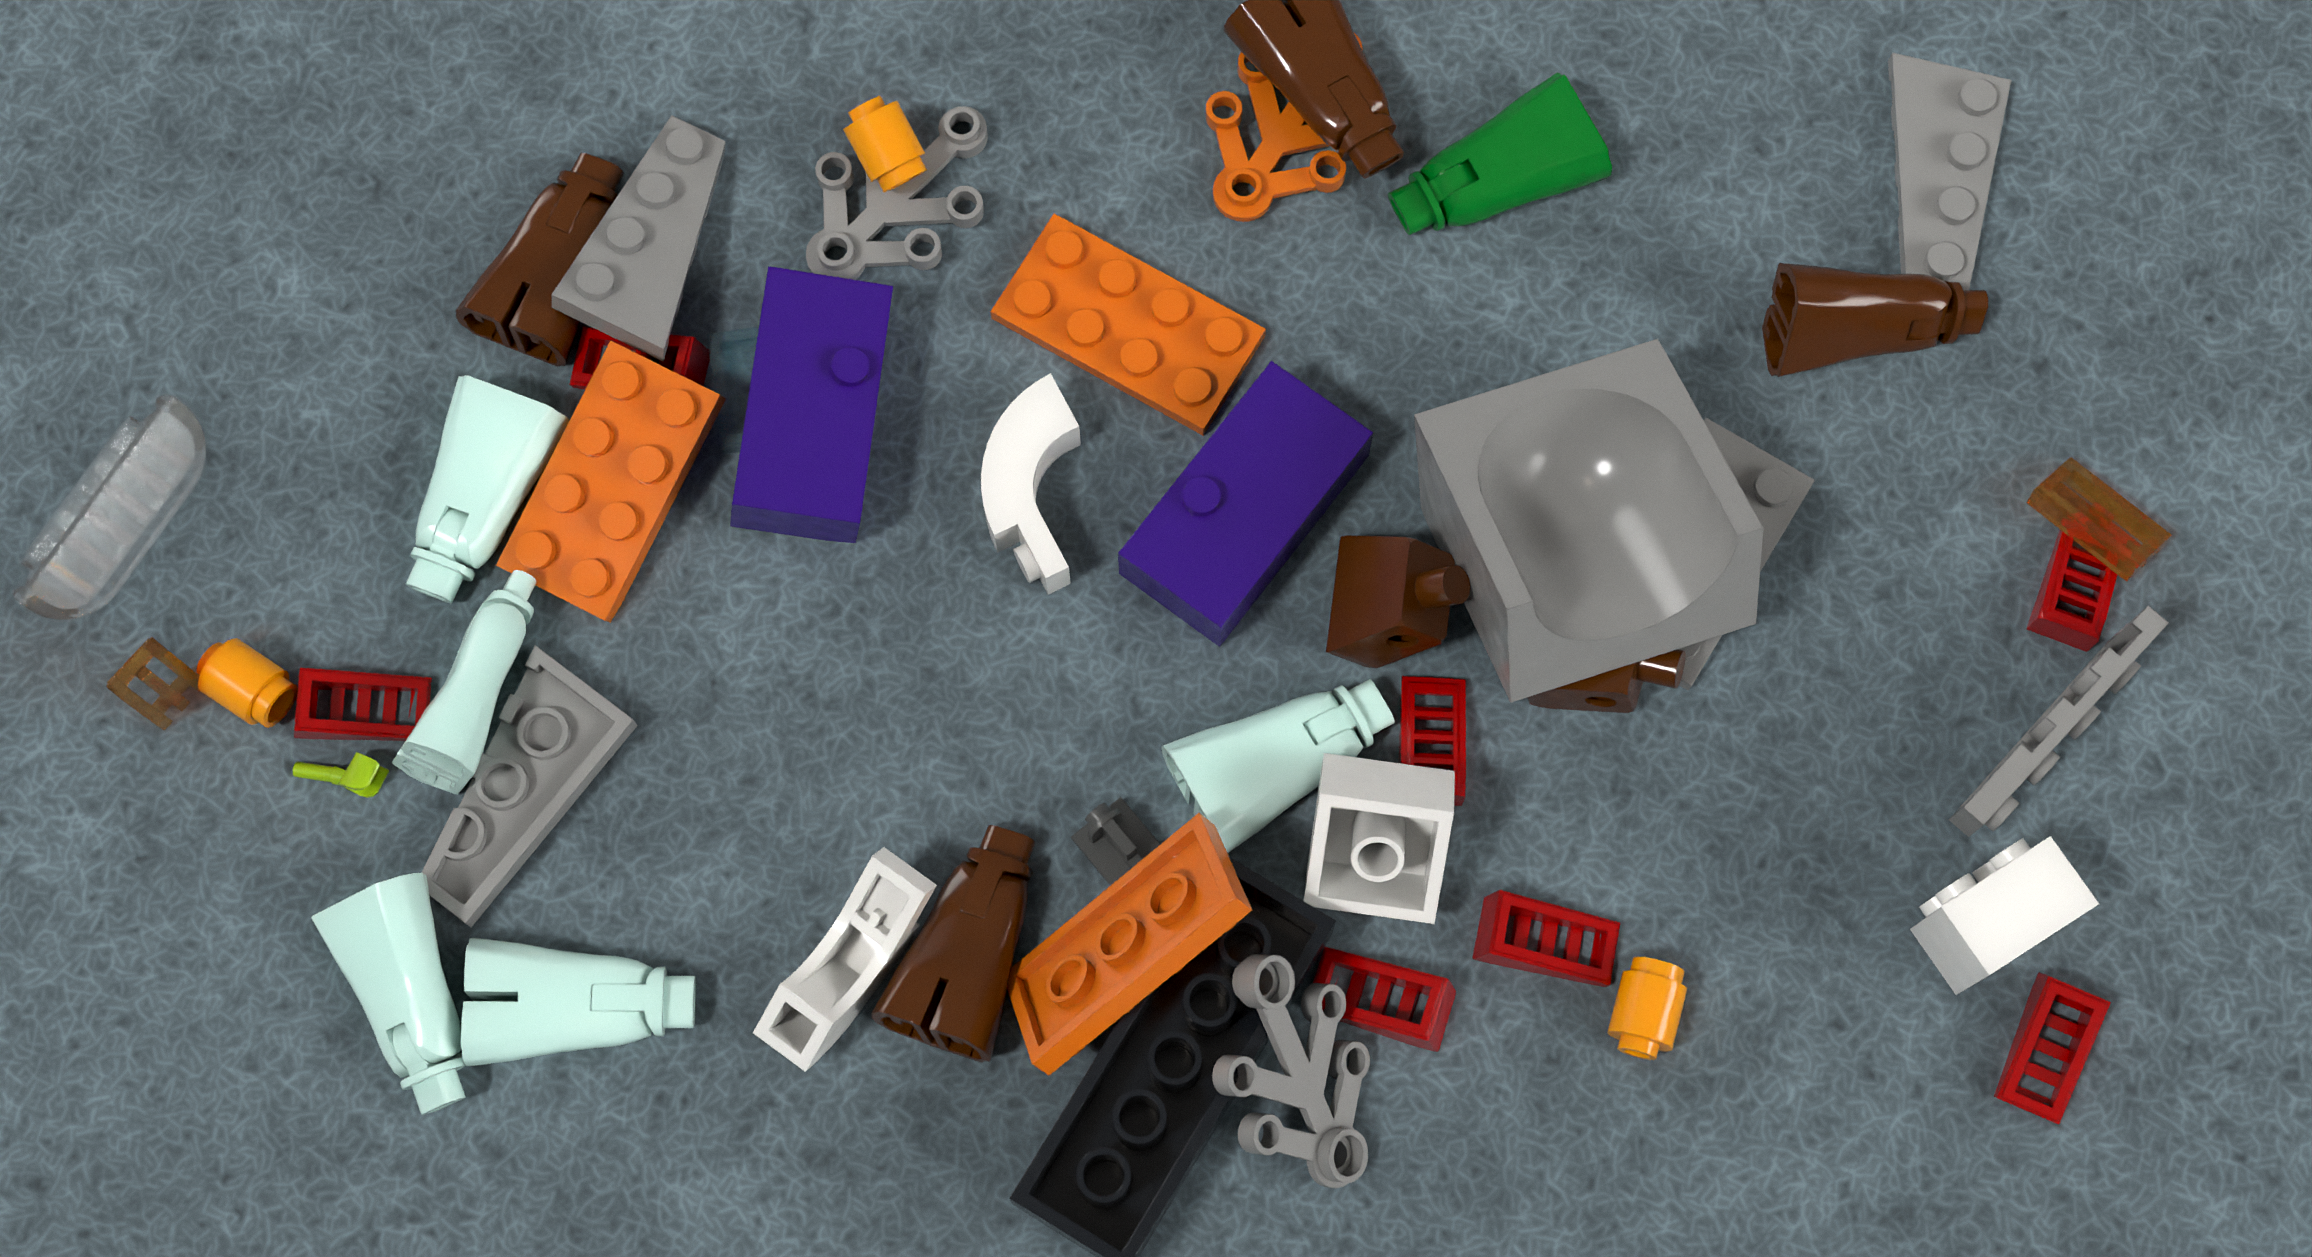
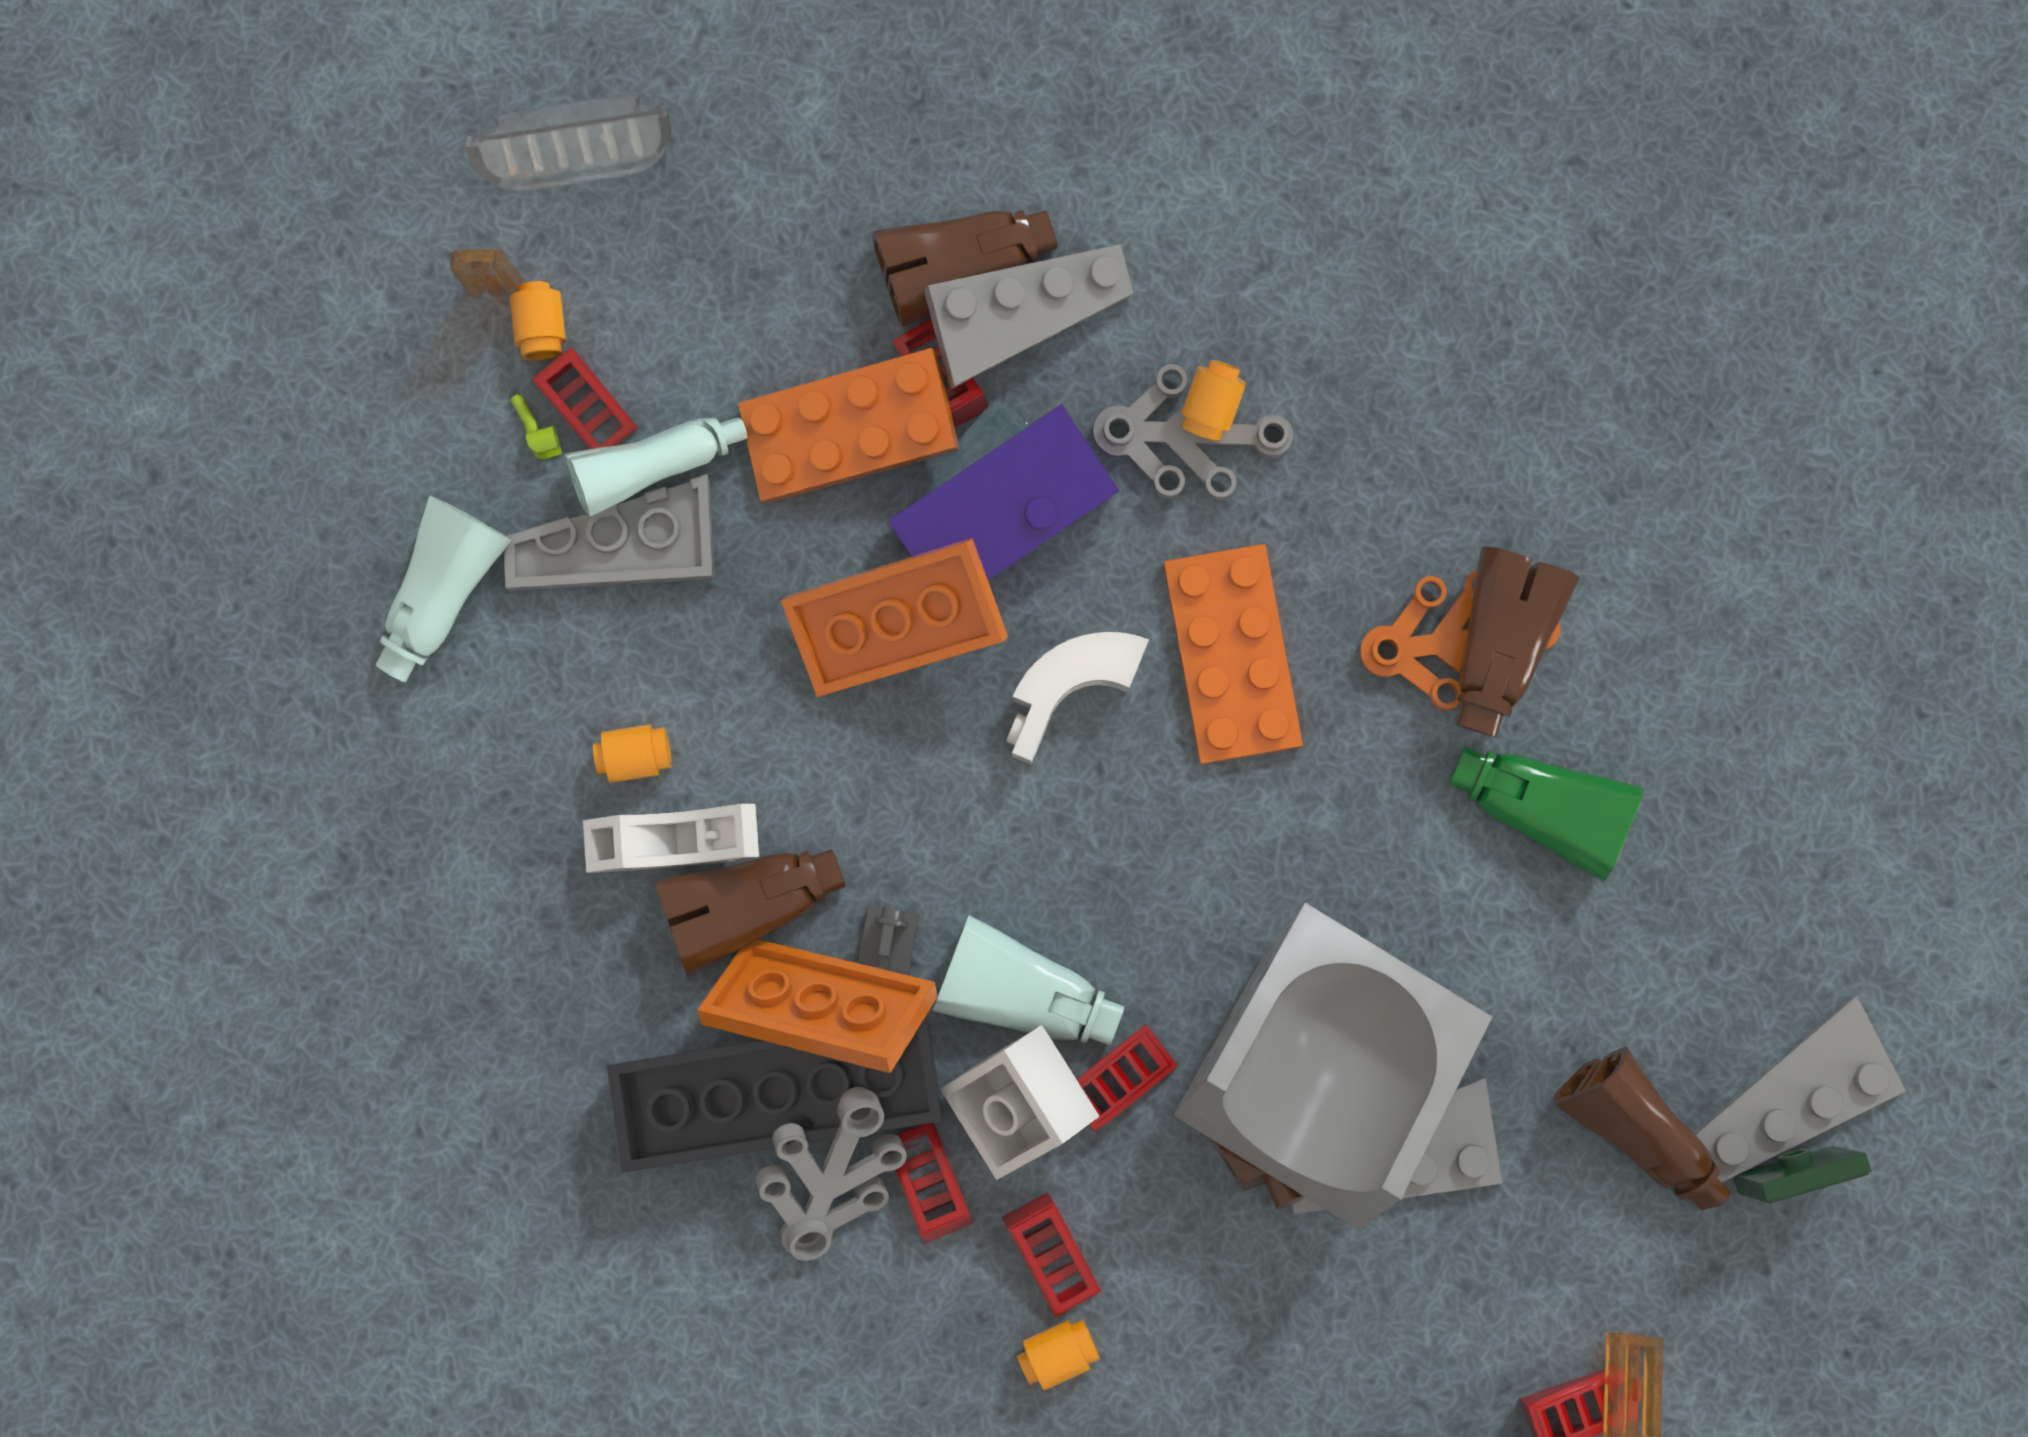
camera: 50 degrees right, 10 degrees up
(484, 469) = (785, 344): light aqua piece -> none
(563, 1001) = (509, 688): light aqua piece -> none
(731, 935) = (632, 753): none -> light orange brick
(826, 577) = (895, 618): none -> orange plate
(1245, 503) = (1172, 833): dark purple brick -> none
(1391, 598) = (1184, 980): reddish brown torso -> none
(2015, 211) = (1802, 1173): none -> dark green plate

